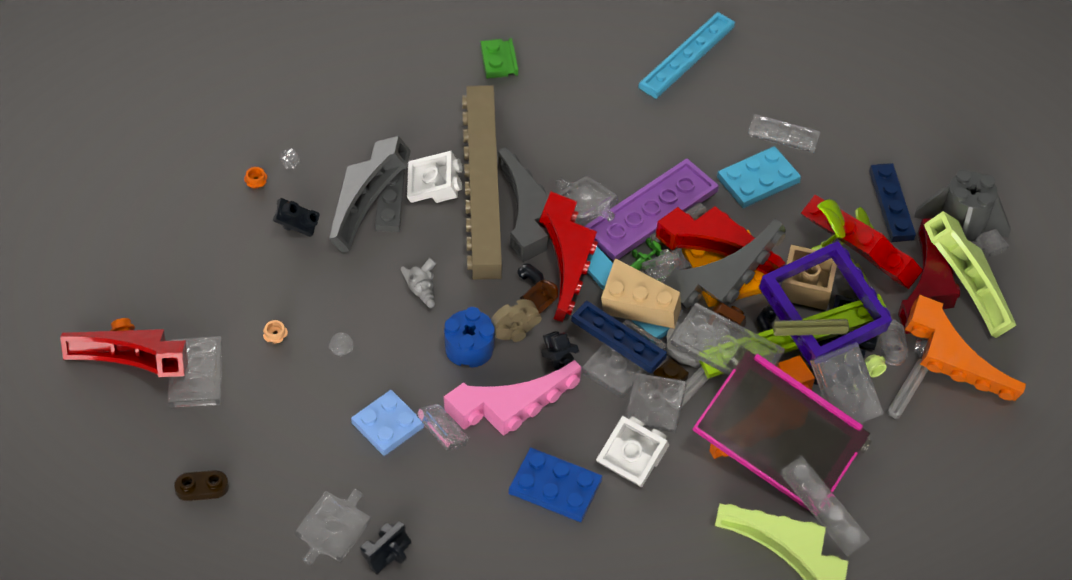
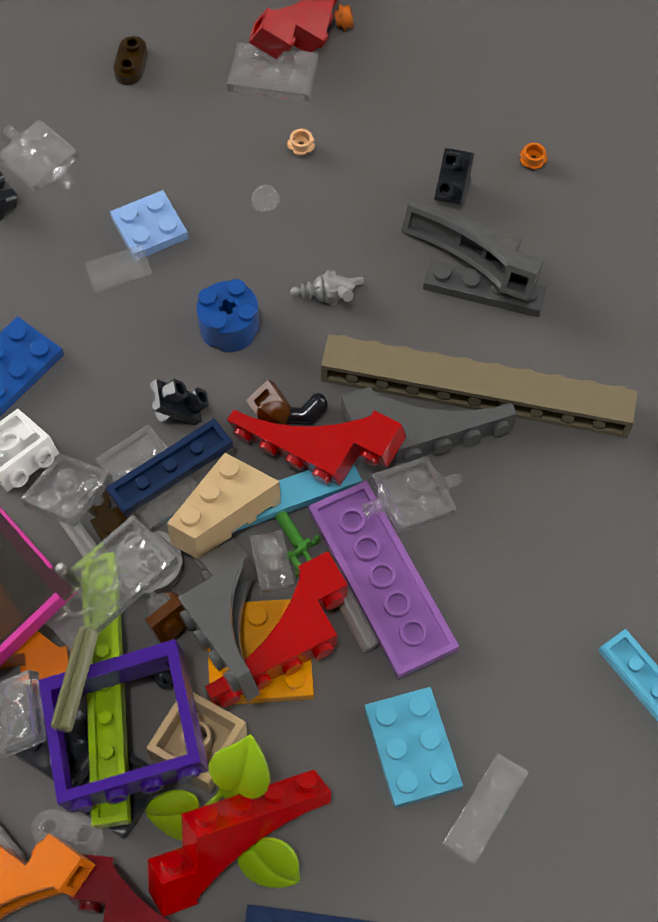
camera: 105 degrees right, 10 degrees up
(290, 159) = (556, 193): clear plate -> none
(434, 178) = (489, 331): white plate -> none
(509, 404) = (123, 338): bright pink arch -> none
(515, 320) = (231, 371): dark tan plate -> none
(875, 365) = (35, 787): yellowish green plate -> none

